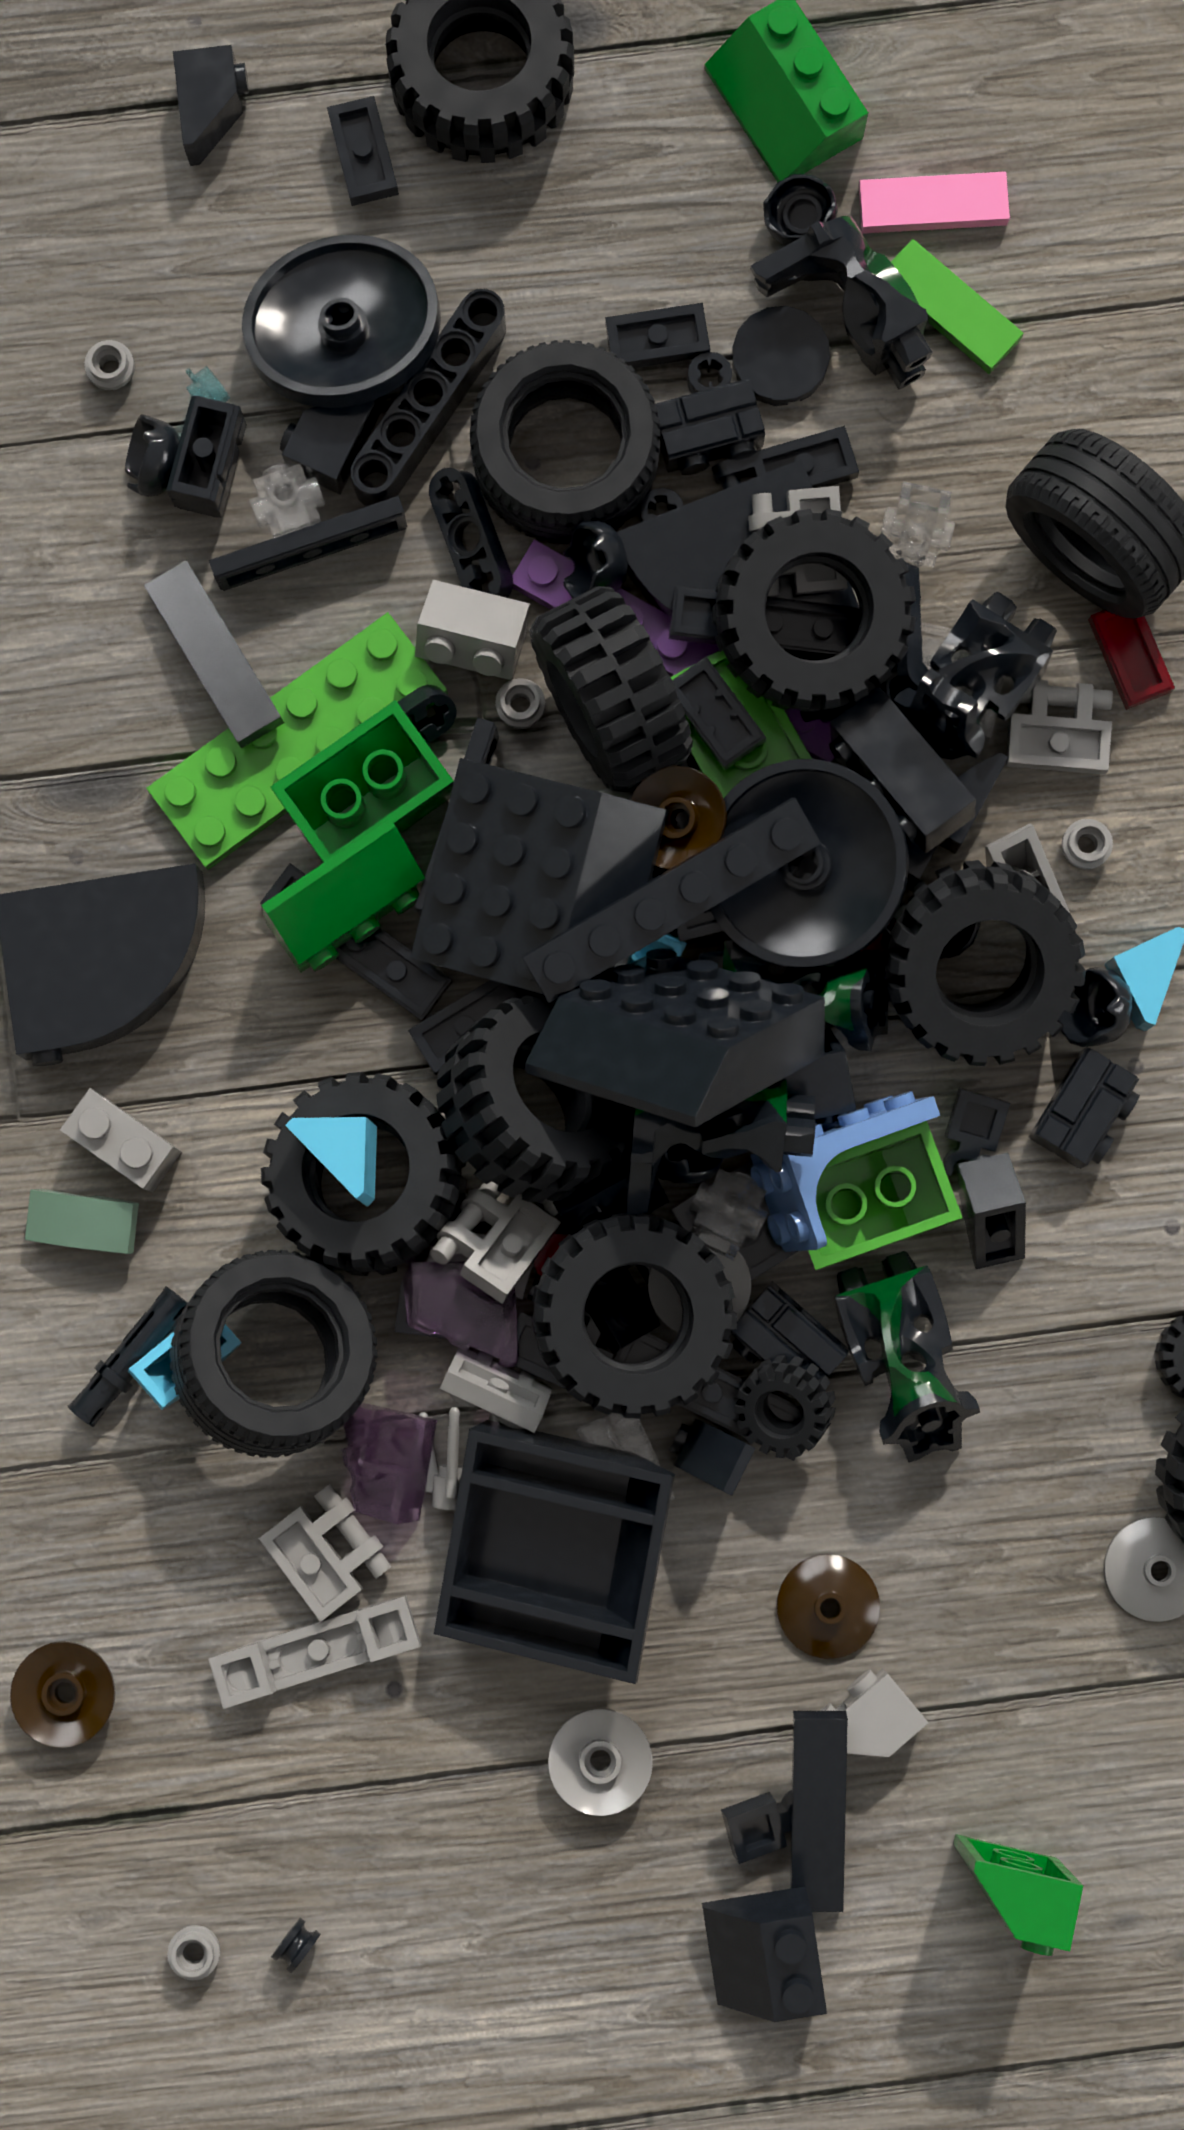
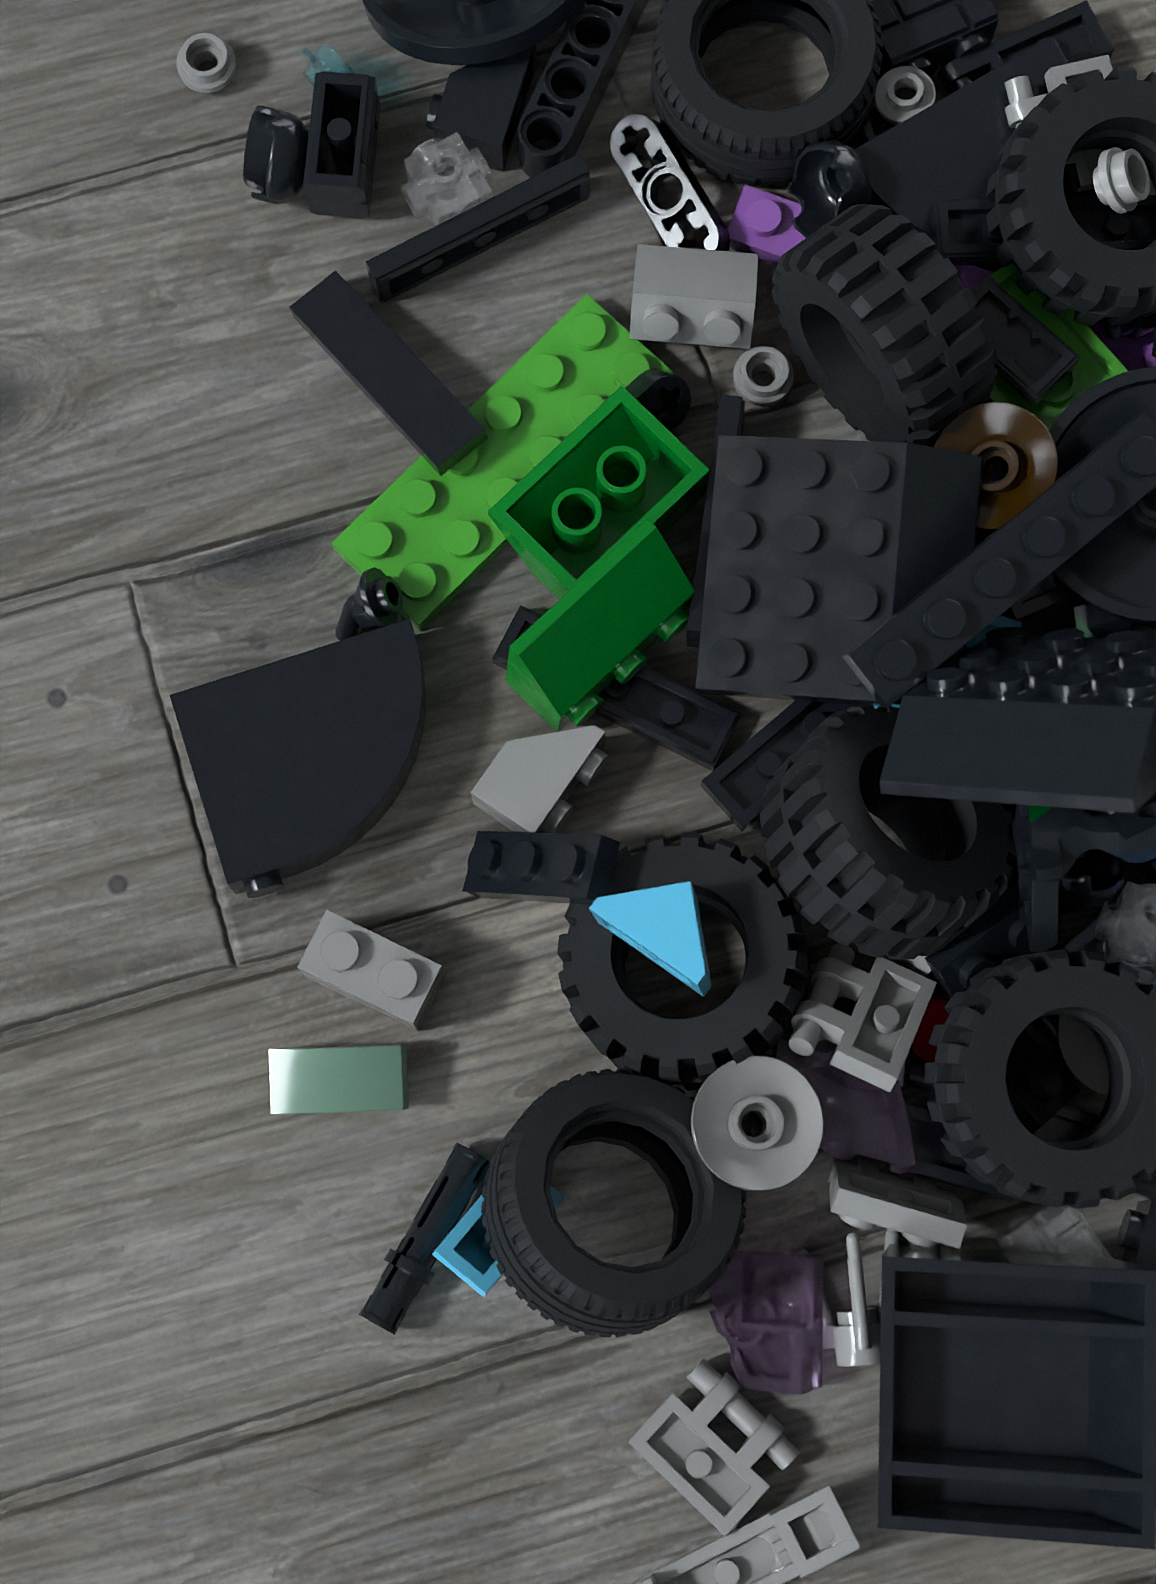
camera: 10 degrees left, 5 degrees down
(169, 846) = (374, 603): none -> black plate
(263, 1081) = (541, 866): none -> black plate
(277, 1006) = (535, 777): none -> light grey slope
(419, 1318) = (788, 1116): none -> light grey dish
(675, 470) = (897, 110): none -> light grey plate
(809, 605) = (1121, 179): none -> light grey plate

